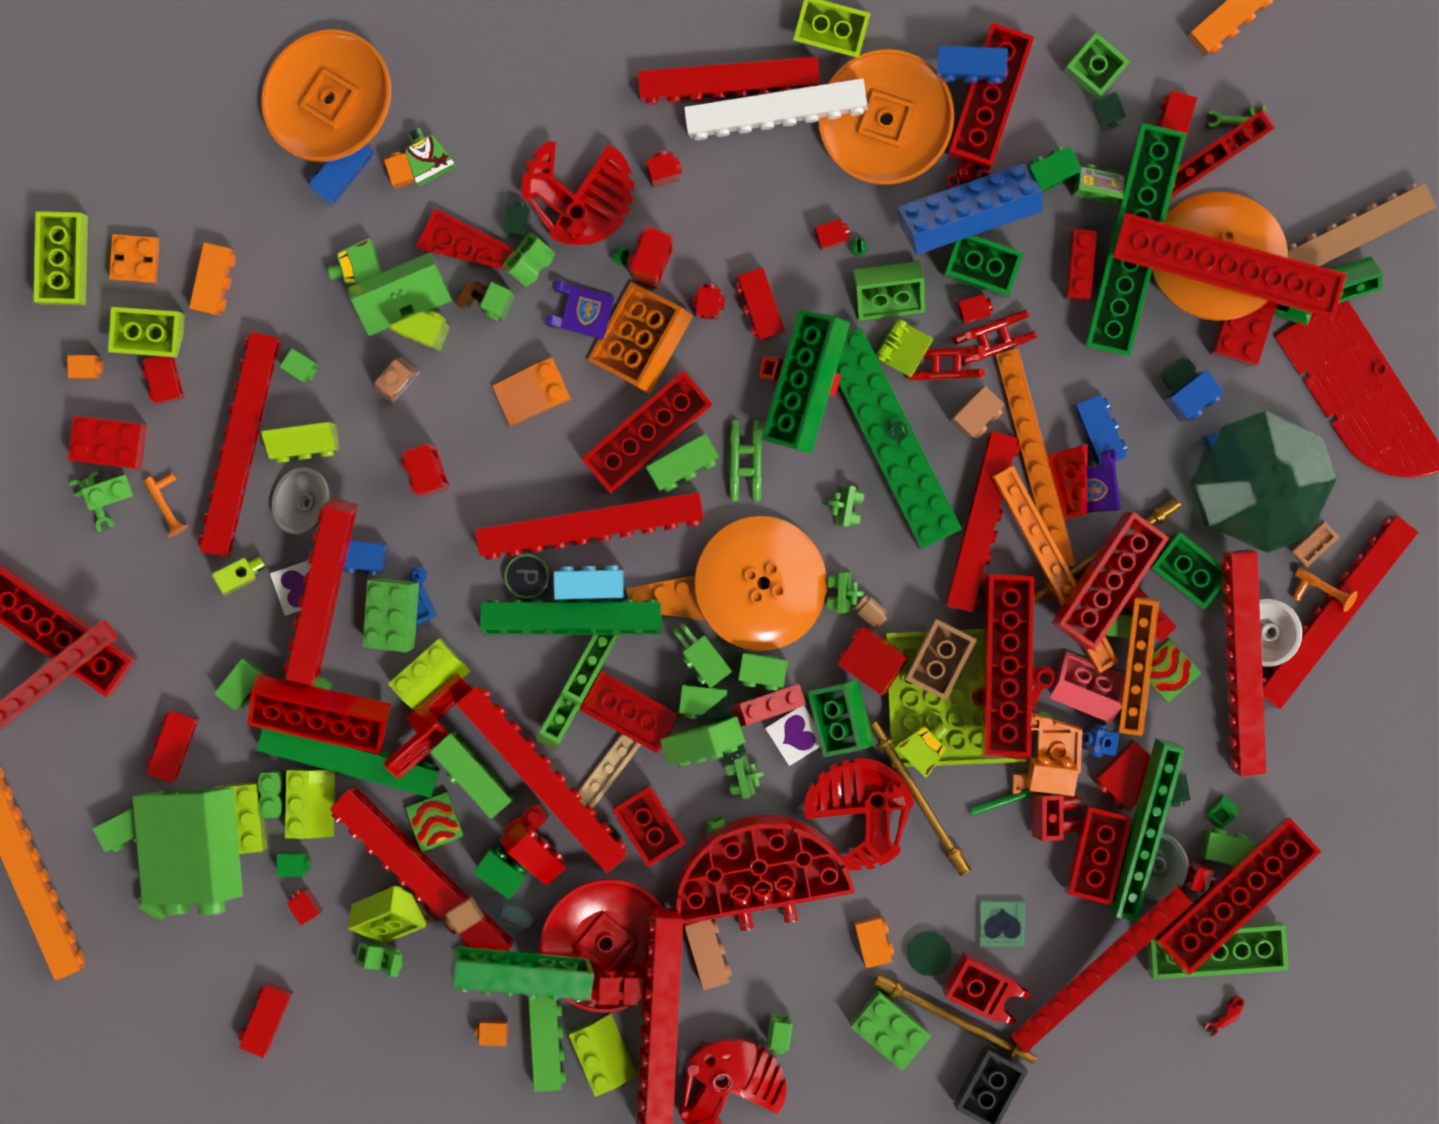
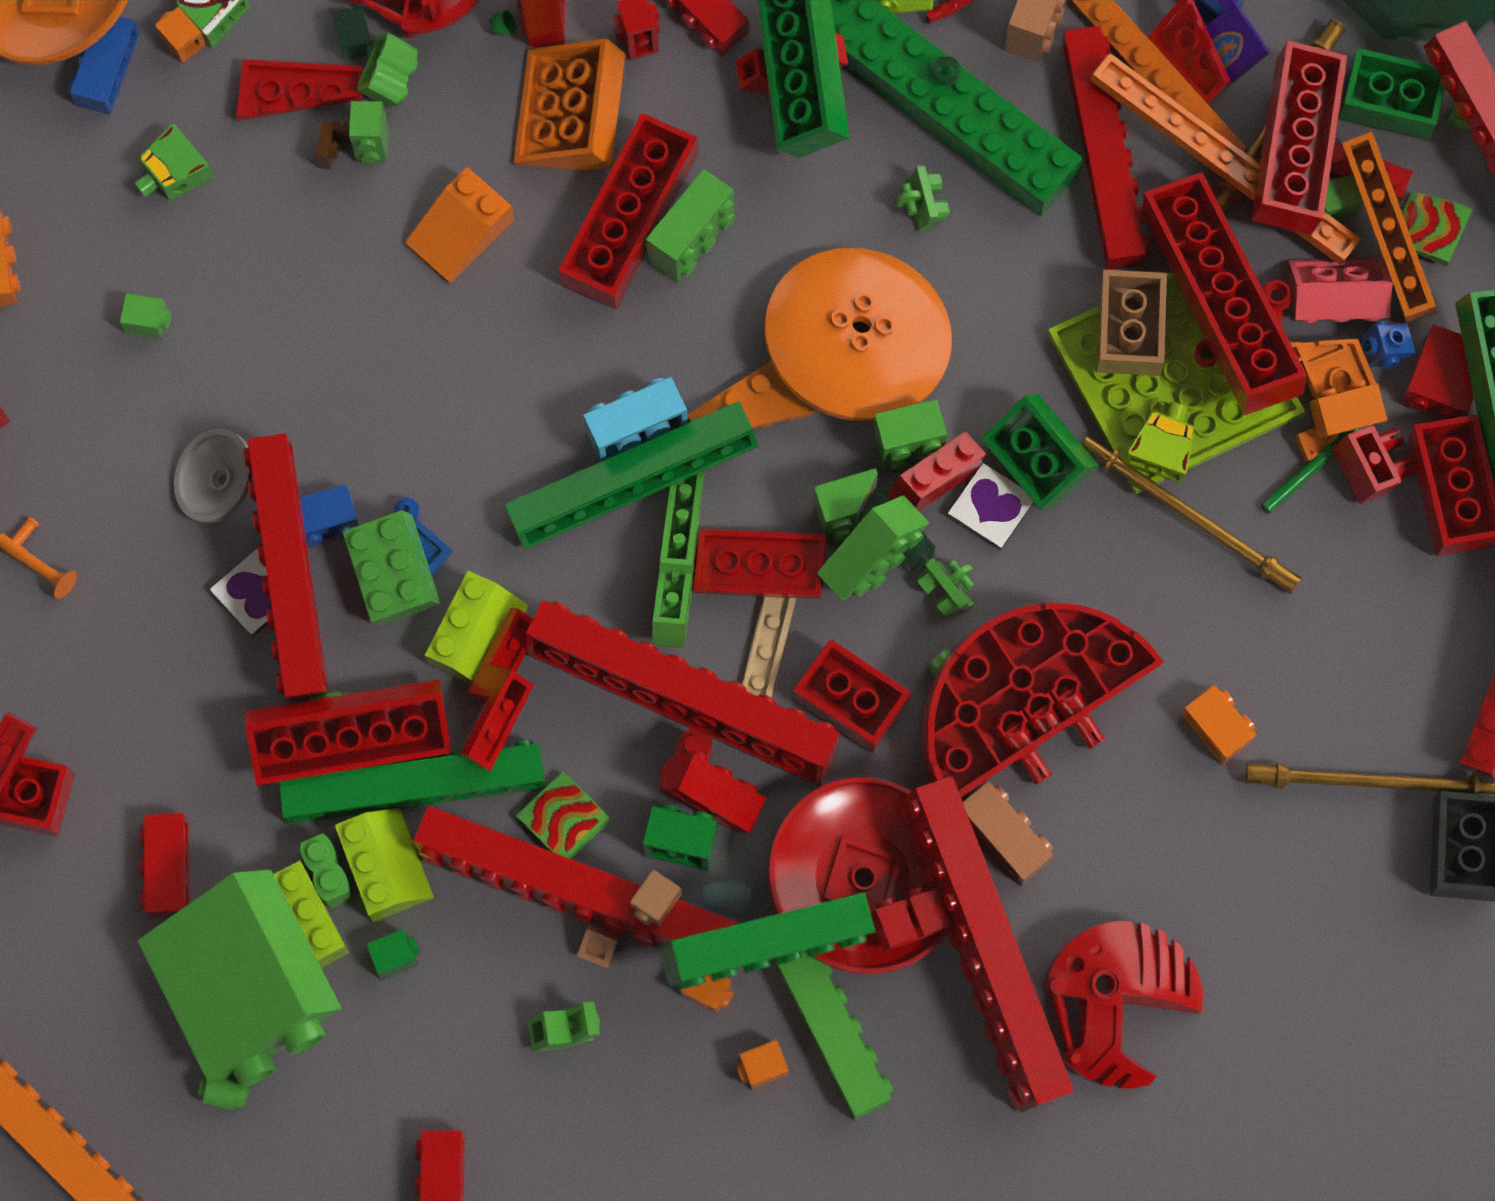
camera: 20 degrees left, 15 degrees down
(117, 831) = (137, 1008): bright green brick -> none
(228, 579) = (165, 606): lime torso -> none
(239, 445) = (105, 445): red brick -> none
(239, 684) = (225, 747): bright green piece -> none
(301, 441) = (184, 401): lime slope -> none
(303, 906) = (431, 1004): red brick -> none
(386, 915) = (550, 959): lime slope -> none
(395, 379) = (278, 276): nougat torso -> none
(399, 293) = (239, 172): bright green brick -> none
(424, 328) = (285, 197): lime slope -> none
(425, 470) = (362, 364): red brick -> none
(472, 774) = (587, 726): bright green brick -> none
(527, 576) = (550, 453): black tile -> none
(585, 311) = (483, 106): dark purple flag -> none
(589, 524) = (605, 349): red brick -> none
(602, 1054) = (925, 1031): lime slope -> none
(703, 657) = (824, 448): bright green brick -> none
(755, 470) = (762, 213): bright green piece -> none
(779, 1033) = (1151, 892): bright green brick -> none
(847, 592) = (963, 292): bright green hips -> none
(848, 792) = (1096, 539): red piece -> none
(871, 611) = (1016, 311): medium nougat brick -> none
(873, 660) = (1047, 364): red brick -> none
(890, 1029) = (1297, 829): bright green brick -> none
(929, 953) = (1300, 711): clear green tile -> none
(989, 994) = (1405, 716): red brick -> none
(1002, 923) = (1377, 633): clear green tile -> none

